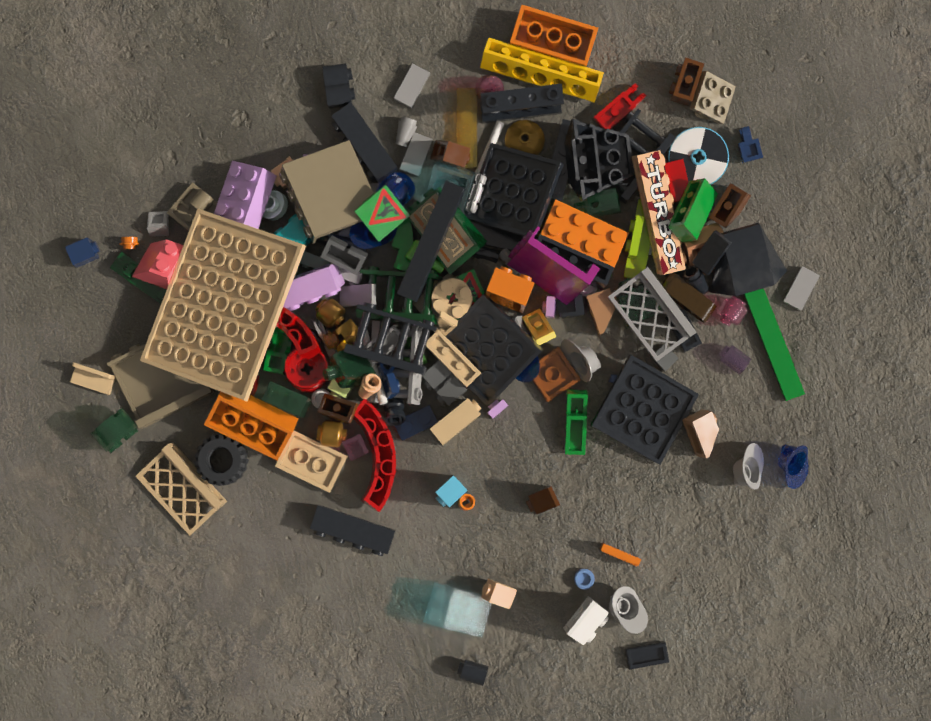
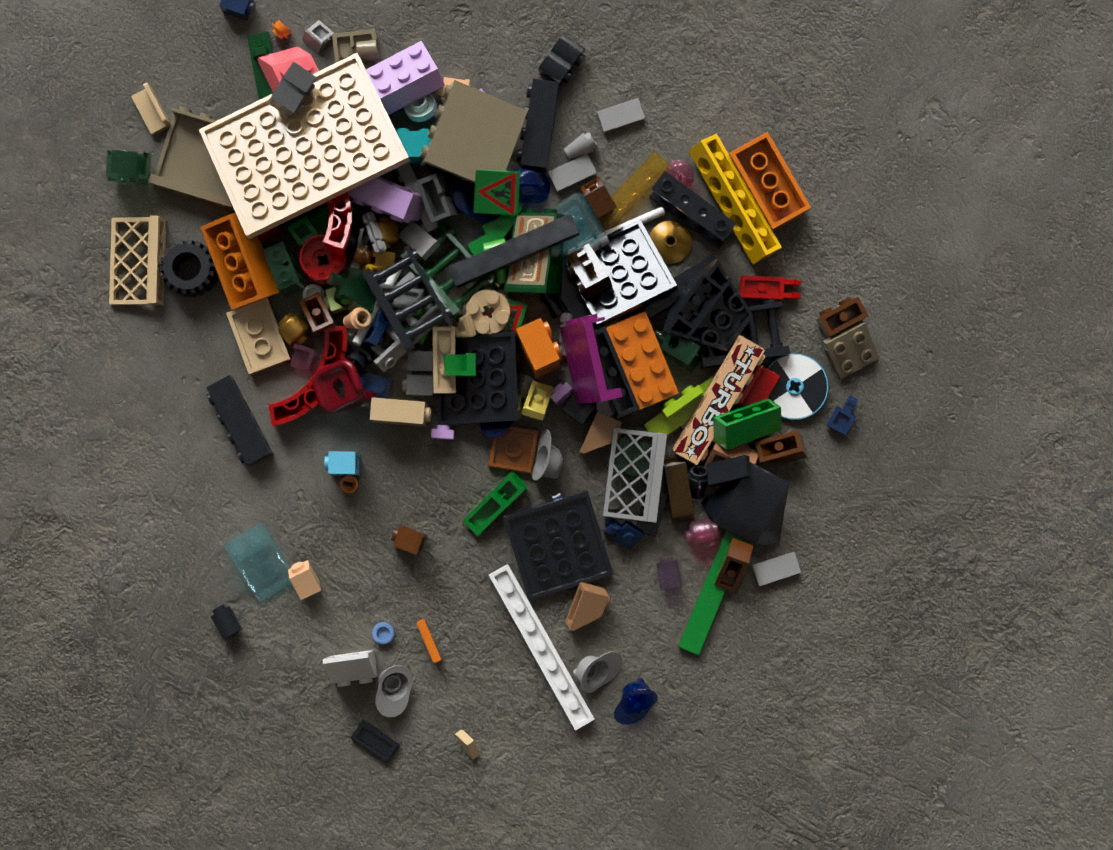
camera: 45 degrees right, 0 degrees up
(178, 273) = (292, 89): none -> dark grey piece
(324, 318) = (374, 233): none -> light grey axle
(395, 455) = (328, 397): none -> dark red piece
(467, 351) = (460, 365): none -> green panel
(492, 208) = (589, 271): none -> dark brown brick
(681, 359) = (625, 534): none -> dark blue plate
(697, 487) = (541, 647): none -> white plate
(710, 598) = (467, 743): none -> tan tile
(773, 312) = (734, 565): none -> reddish brown slope

